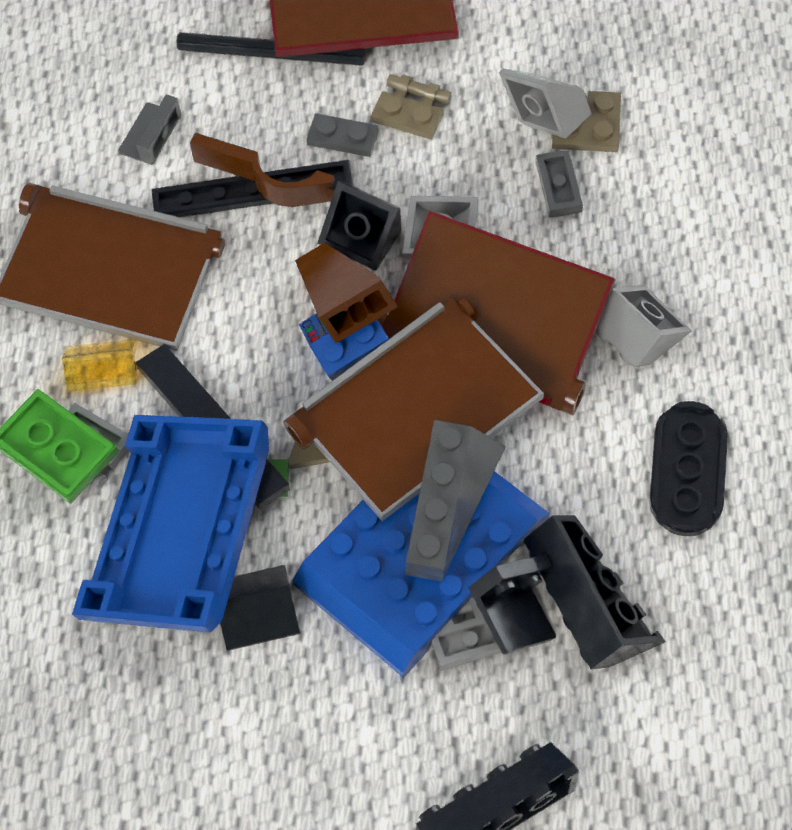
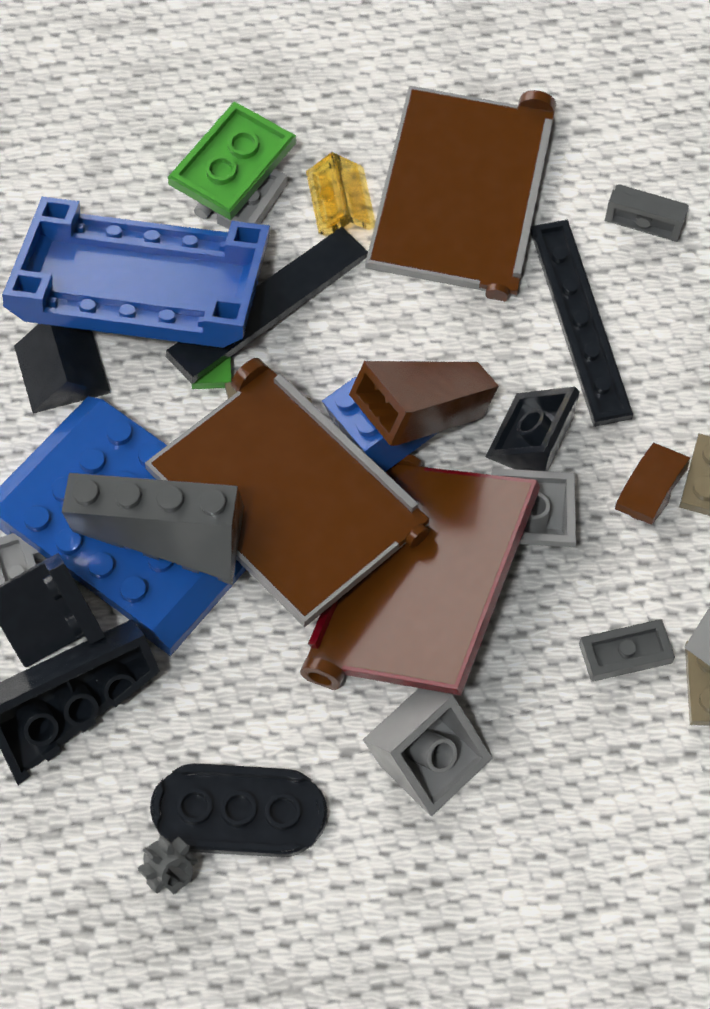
camera: 80 degrees right, 0 degrees up
(246, 164) = (590, 313): reddish brown piece -> none
(342, 135) = (669, 407): dark grey plate -> none
(415, 149) = (651, 483): none -> reddish brown slope
(741, 516) = (167, 865): none -> dark grey gear

